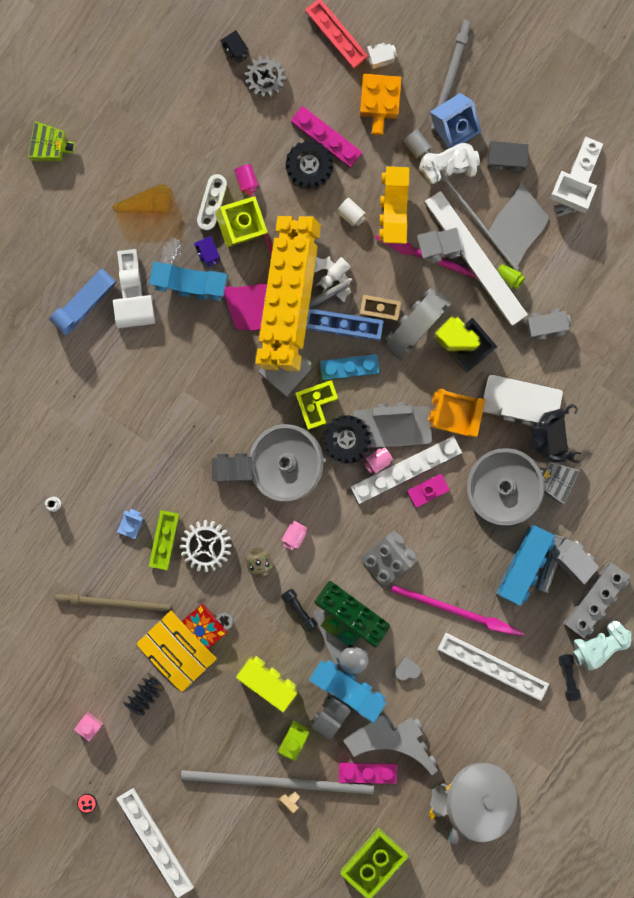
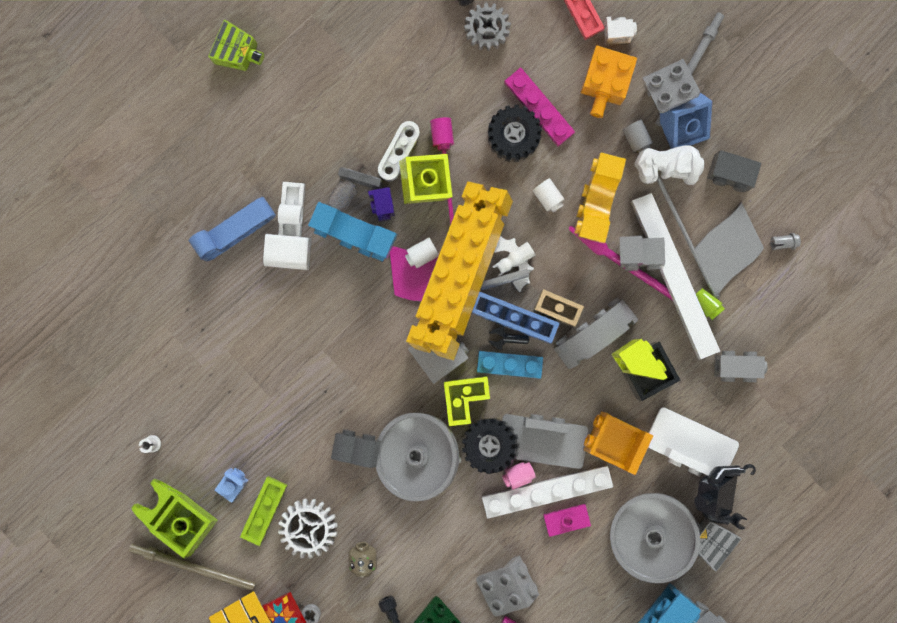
camera: 15 degrees right, 0 degrees up
(83, 561) = (167, 519): none -> lime brick
(152, 200) = (330, 134): clear yellow slope -> none
(180, 233) = (360, 178): none -> flat silver tile
(251, 287) = (421, 253): none -> white brick
(294, 535) = (408, 538): bright pink brick -> none
(342, 345) = (507, 338): none -> black bar
(435, 95) = (671, 86): none -> light grey bracket
(574, 188) = (803, 222): white plate -> none

